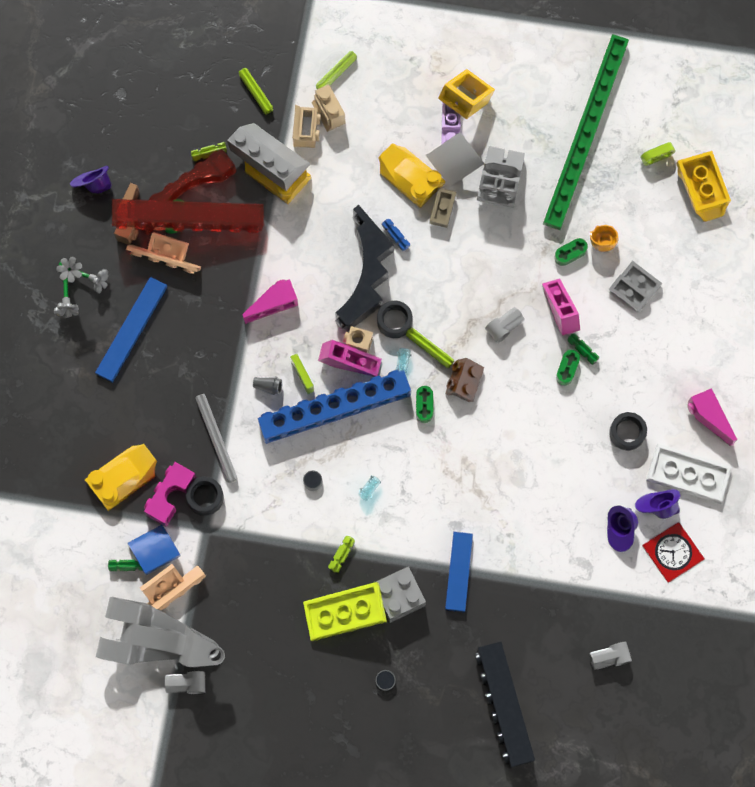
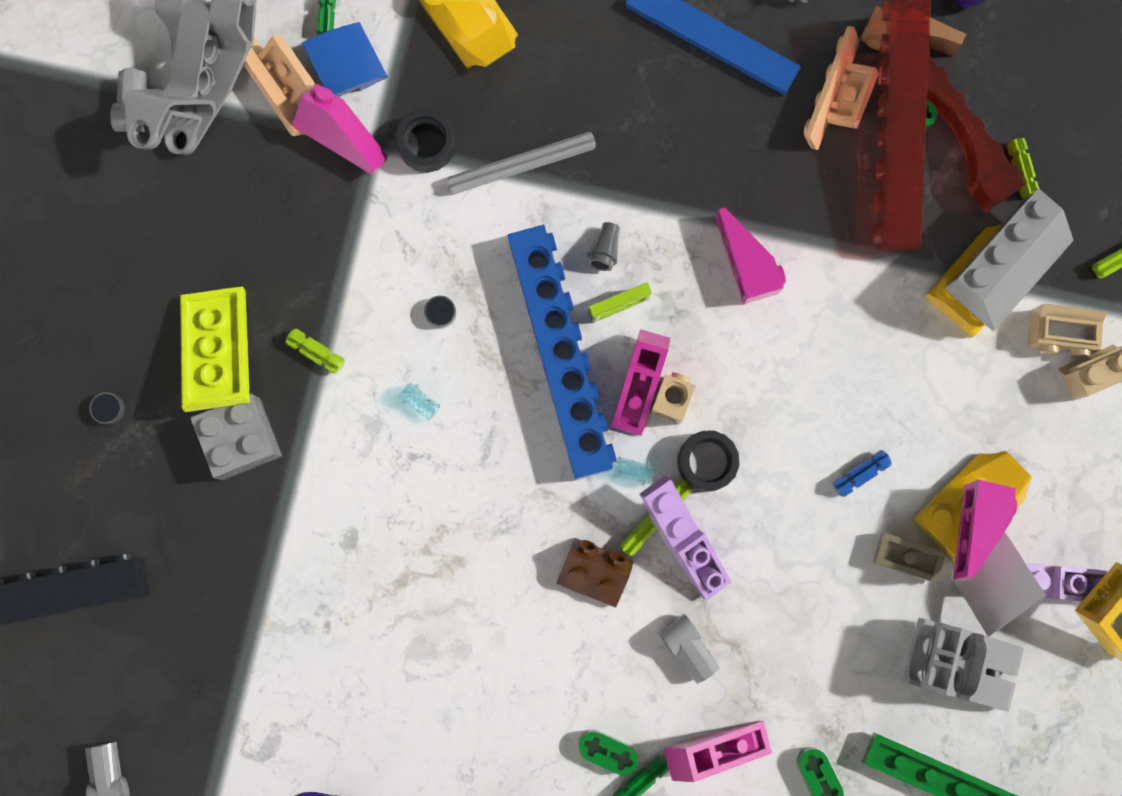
camera: 90 degrees right, 10 degrees up
(176, 479) = (411, 70): dark pink arch -> none
(198, 549) = (338, 128): none -> dark pink slope
(375, 249) = (834, 434): black arch -> none
(420, 166) = (983, 520): none -> dark pink slope
(428, 404) = (557, 493): green beam -> none
(442, 329) = (684, 538): none -> lavender slope
(459, 571) = (270, 538): blue tile -> none

